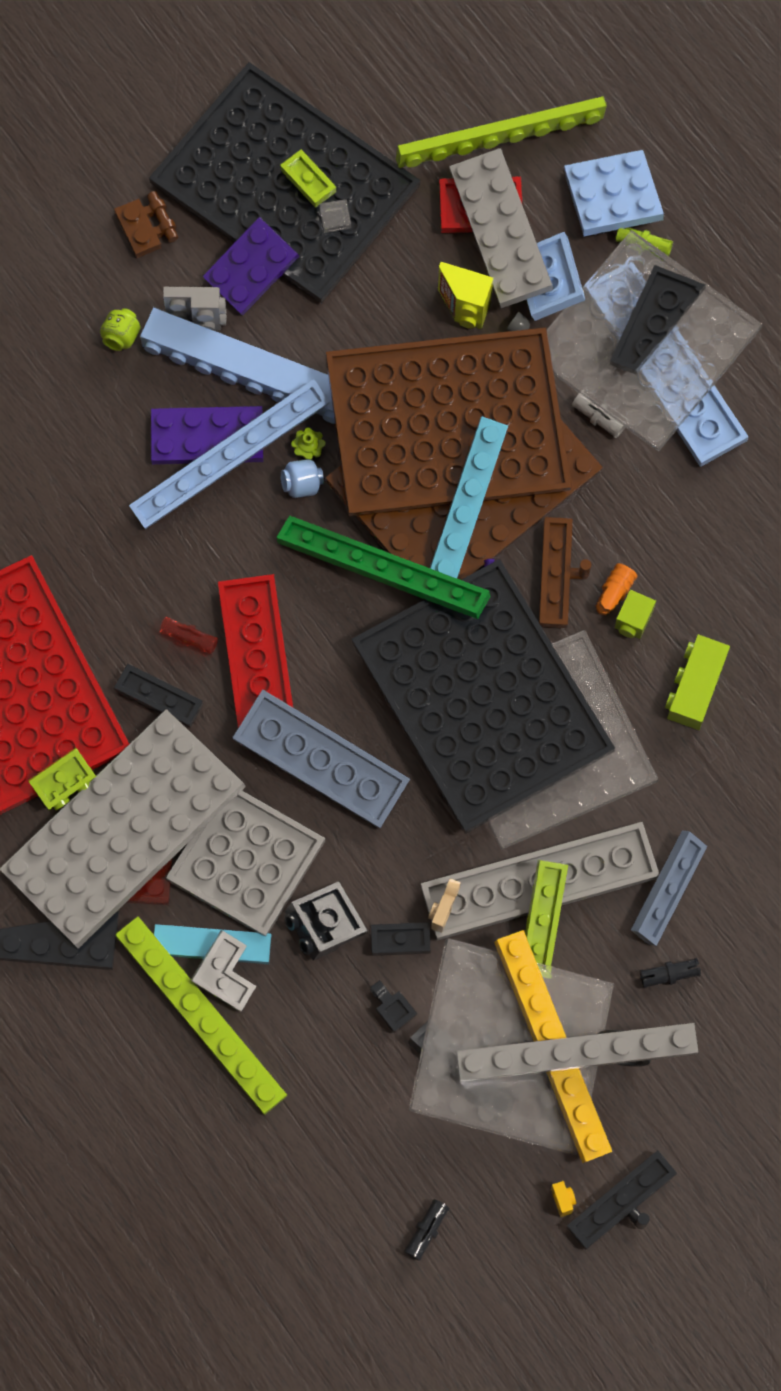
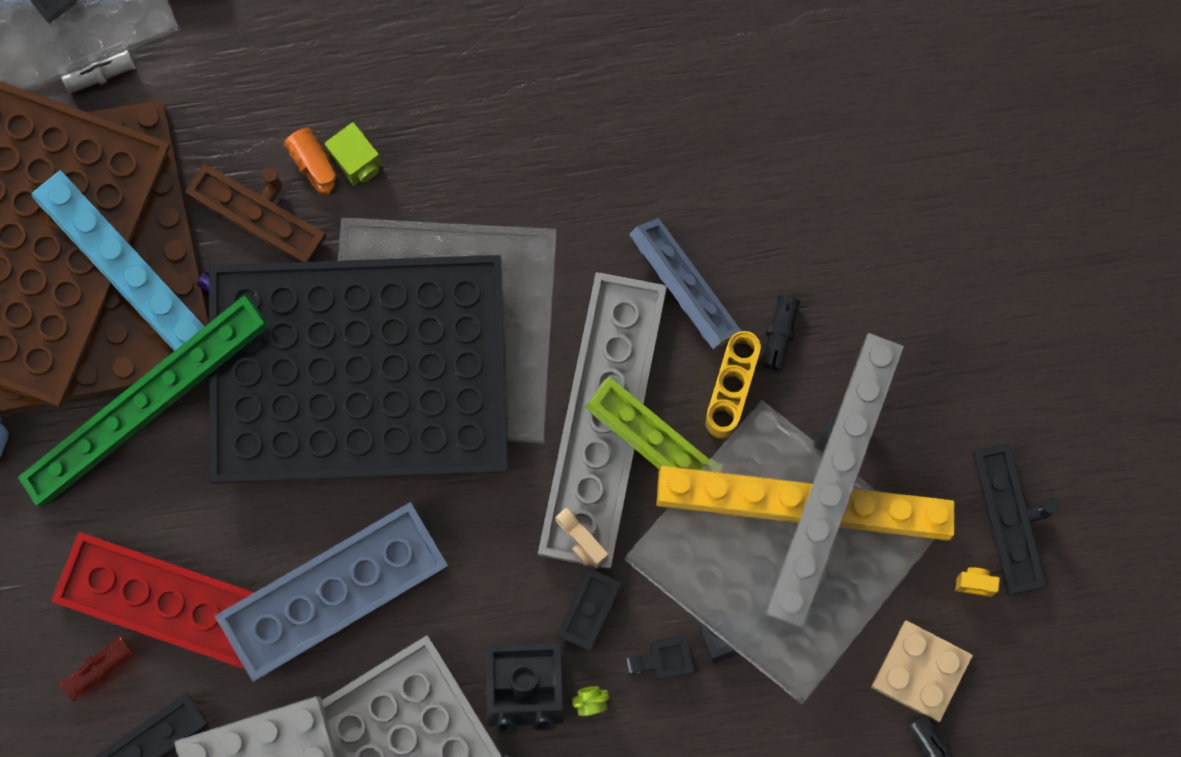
camera: 60 degrees left, 5 degrees up
(338, 971) = (590, 701): none -> lime plate
(479, 1191) = (921, 671): none -> tan plate
(624, 948) = (737, 368): none -> yellow beam
(697, 681) = (468, 128): lime brick -> none

